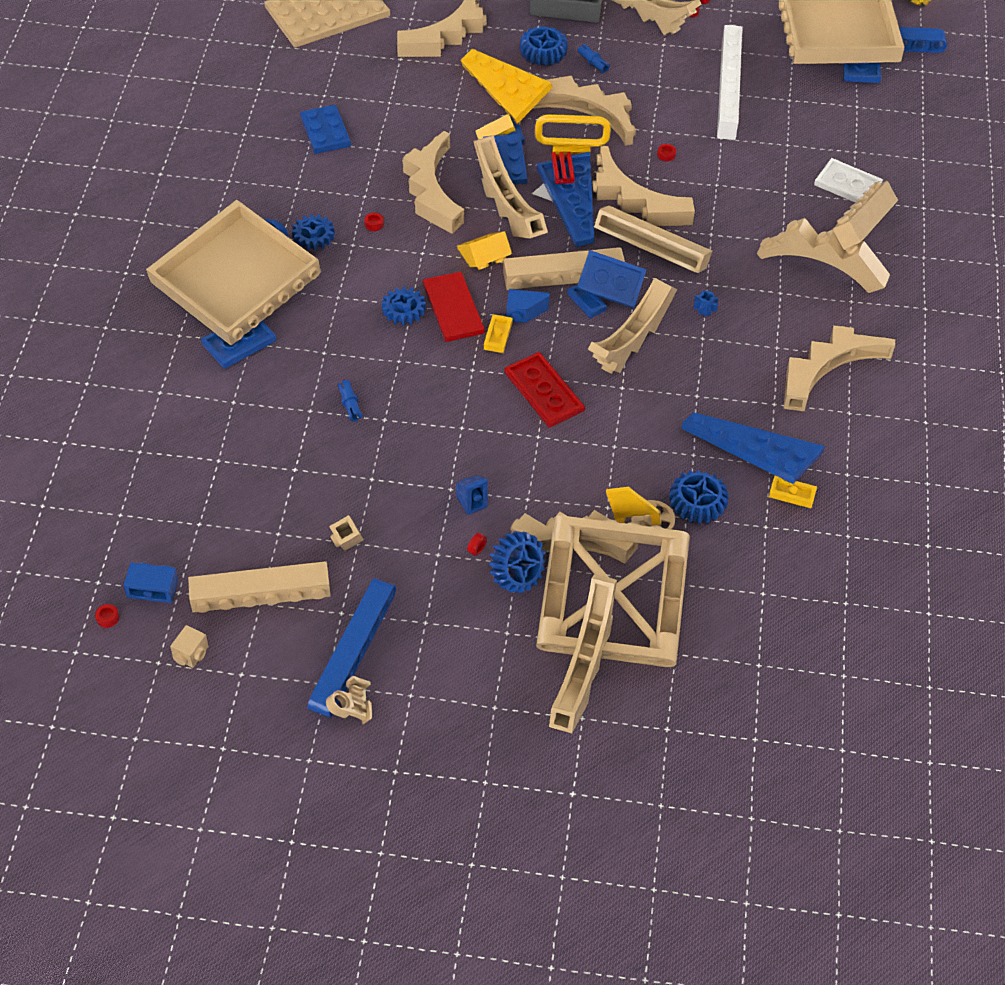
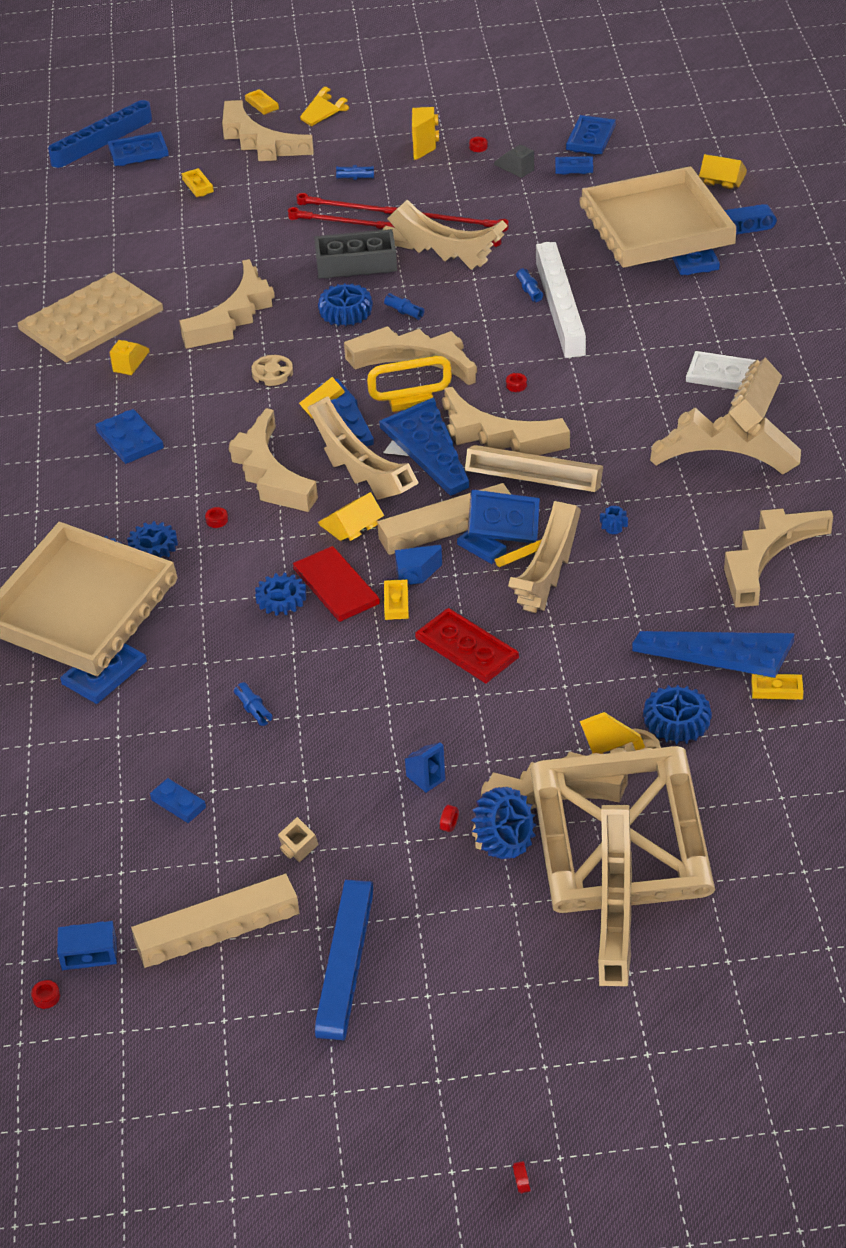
camera: 10 degrees left, 10 degrees down
(189, 646) = (155, 1003): tan brick -> none
(263, 472) = (178, 800): none -> blue plate
(345, 54) = (127, 356): none -> yellow slope
(351, 702) = (365, 1014): tan piece -> none
(432, 874) = (521, 1177): none -> red tile
(461, 96) = (269, 370): none -> tan piece
(507, 85) = (319, 349): yellow wing -> none
(561, 157) = (406, 409): red tile -> none
(613, 316) = (517, 554): none -> yellow tile
(708, 61) = (529, 285): none -> blue pin

